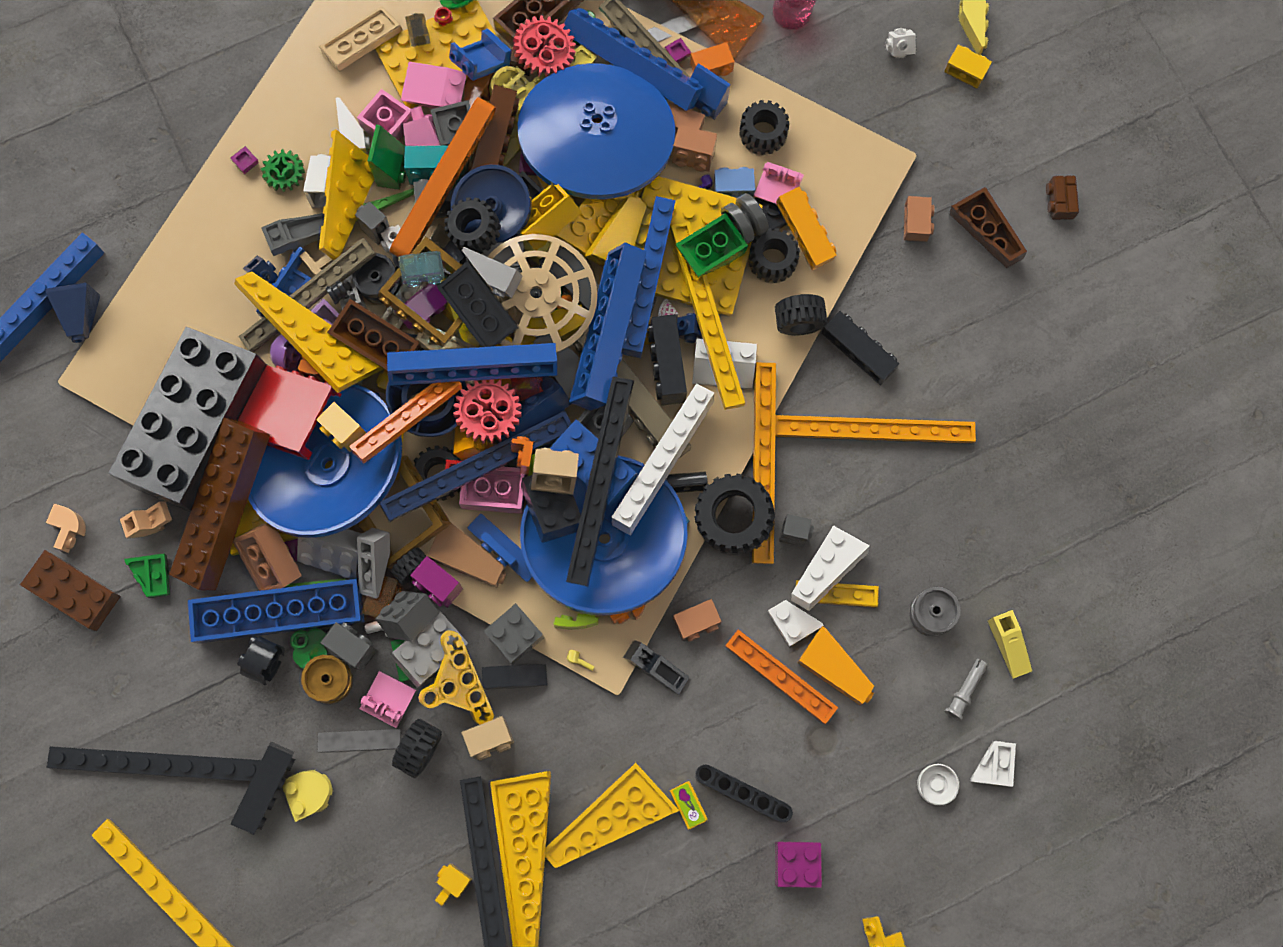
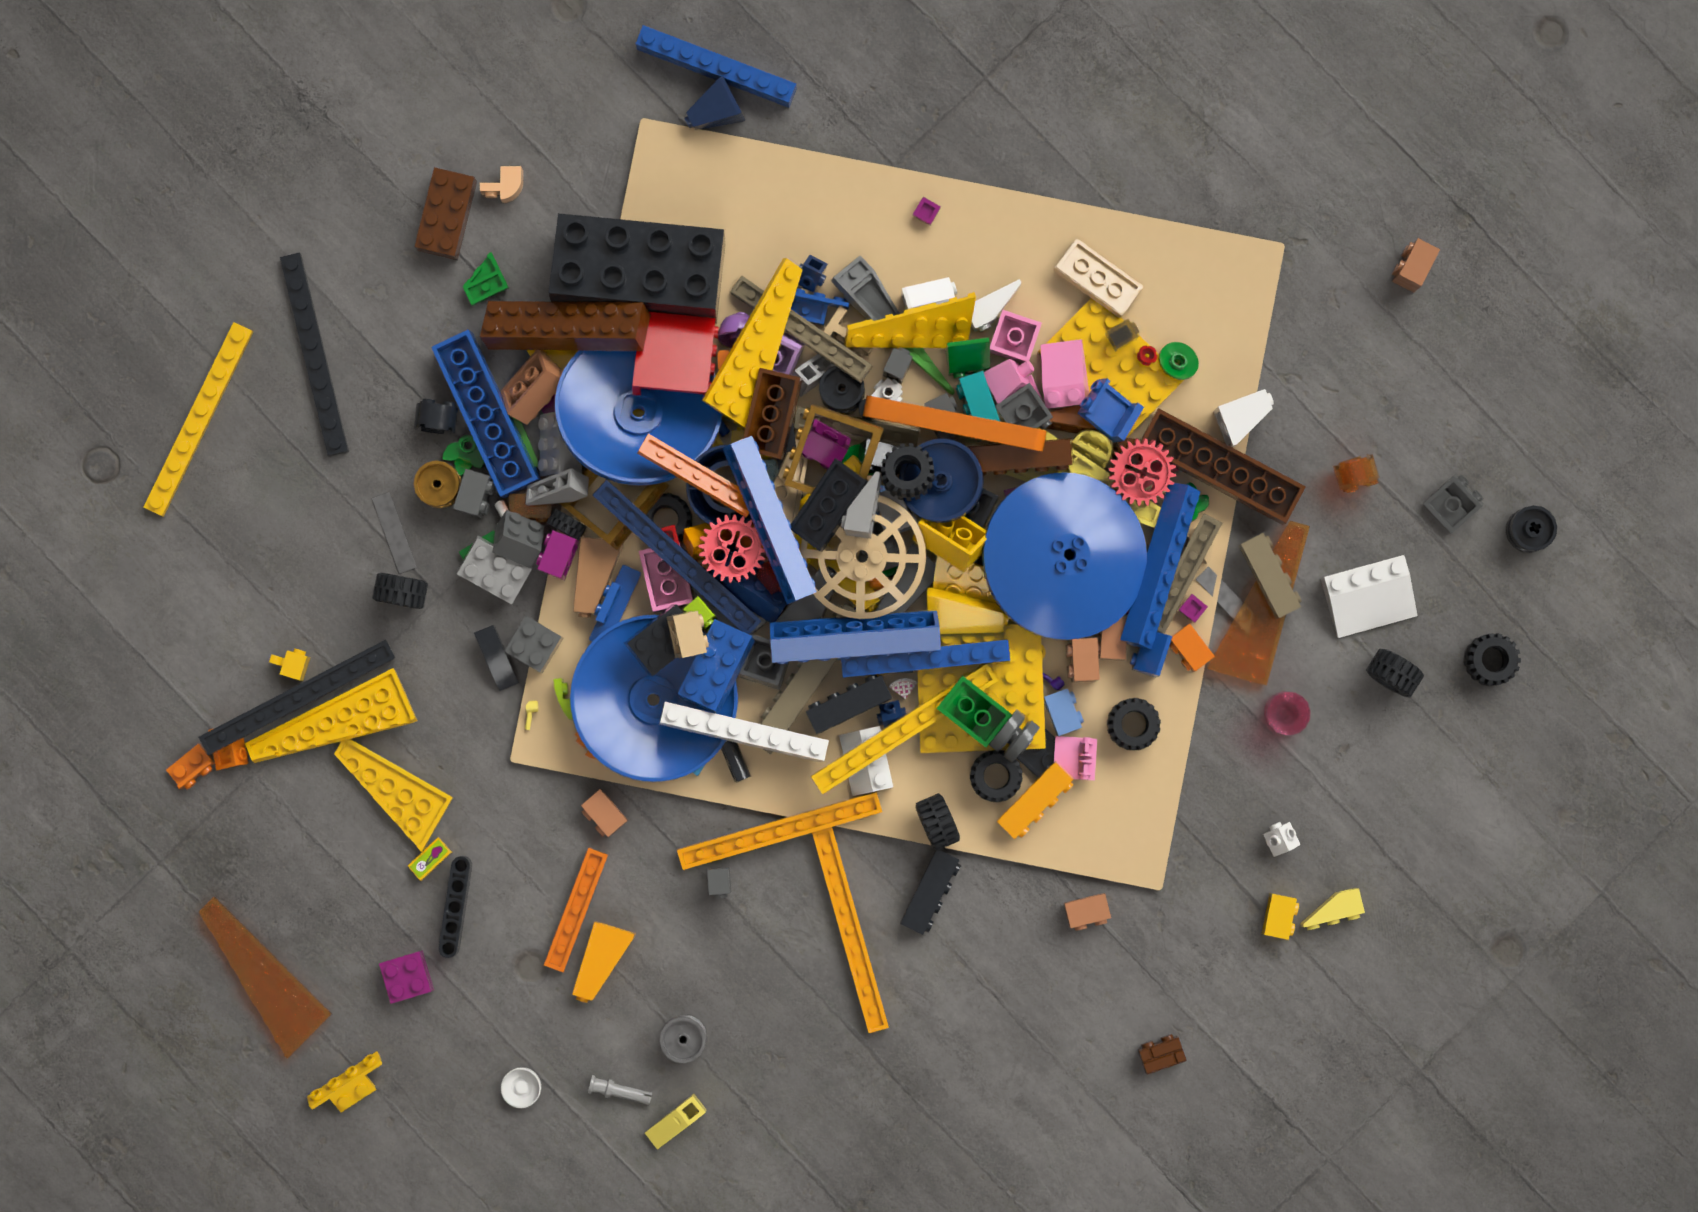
camera: 75 degrees right, 10 degrees up
(146, 522) = (532, 258): light nougat brick -> none
(262, 788) = (321, 462): black brick -> none
(290, 173) = (918, 257): green gear -> none
(307, 793) = (331, 503): light yellow slope -> none
(337, 292) = (810, 359): black wheel -> none
(340, 426) = (670, 416): yellow brick -> none
(387, 699) = (439, 546): bright pink hinge -> none
(421, 268) = (846, 438): clear light blue brick -> none
(453, 673) = (477, 600): yellow beam -> none
(488, 738) = (430, 653): tan brick -> none
(524, 448) = (694, 600): orange bracket -> none
(600, 481) = (694, 680): black plate -> none
(656, 666) = (547, 788): black slope -> none
(722, 489) = (690, 802): black tyre -> none
(793, 622) = (632, 906): white wing -> none
(831, 563) = (701, 926): white wedge -> none
(851, 595) = (674, 940): yellow tile -> none
(989, 227) = (1103, 984): reddish brown wedge -> none
(997, 765) = (556, 1138): white wing -> none

